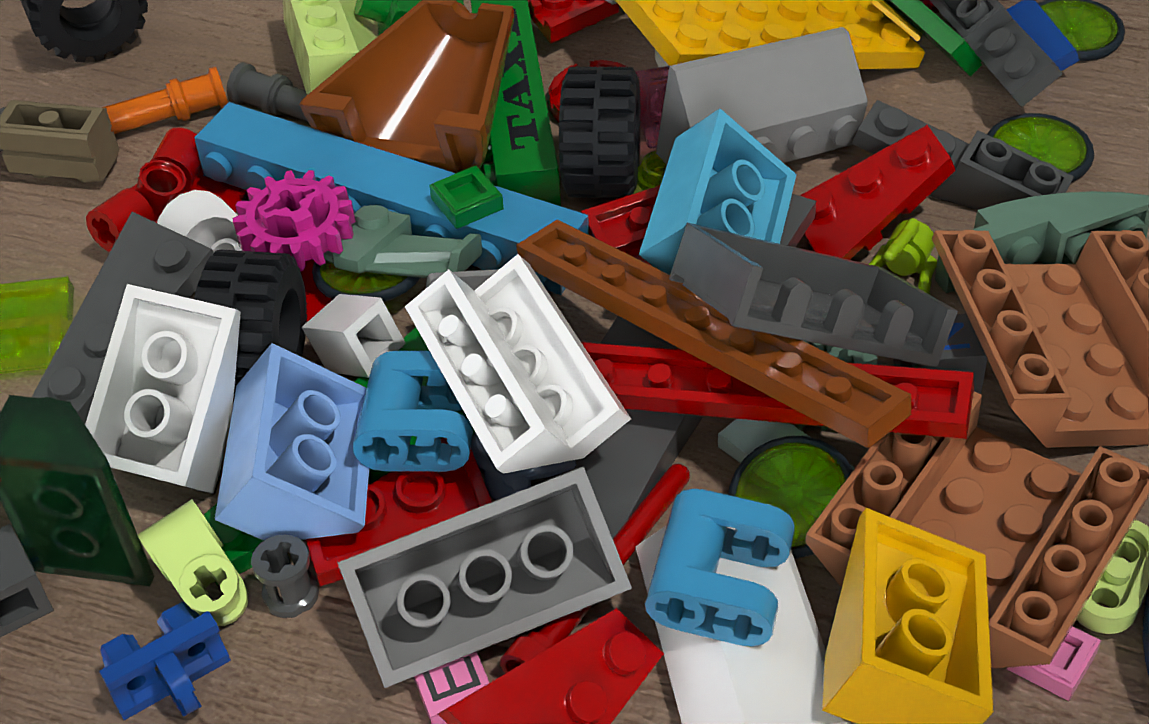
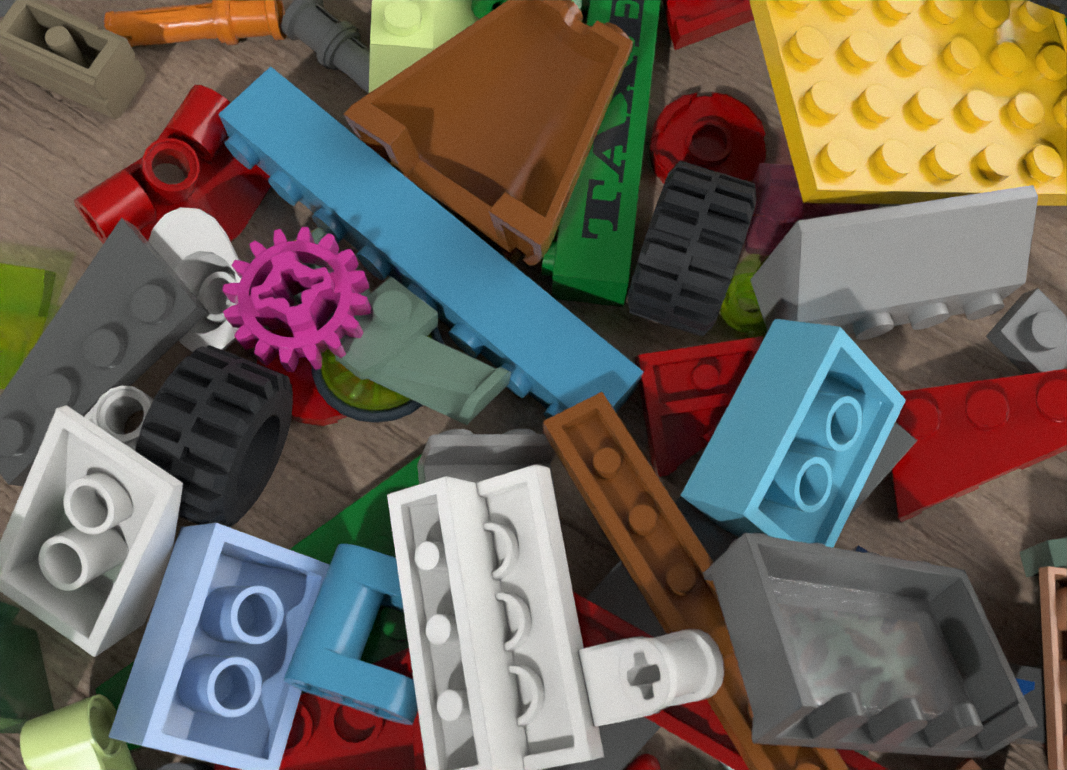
camera: 10 degrees right, 25 degrees up
(353, 334) = (335, 467): white brick -> none
(466, 197) = (508, 309): green tile -> none
(637, 344) = (649, 674): none -> white piece
(909, 252) = (999, 520): lime plant -> none

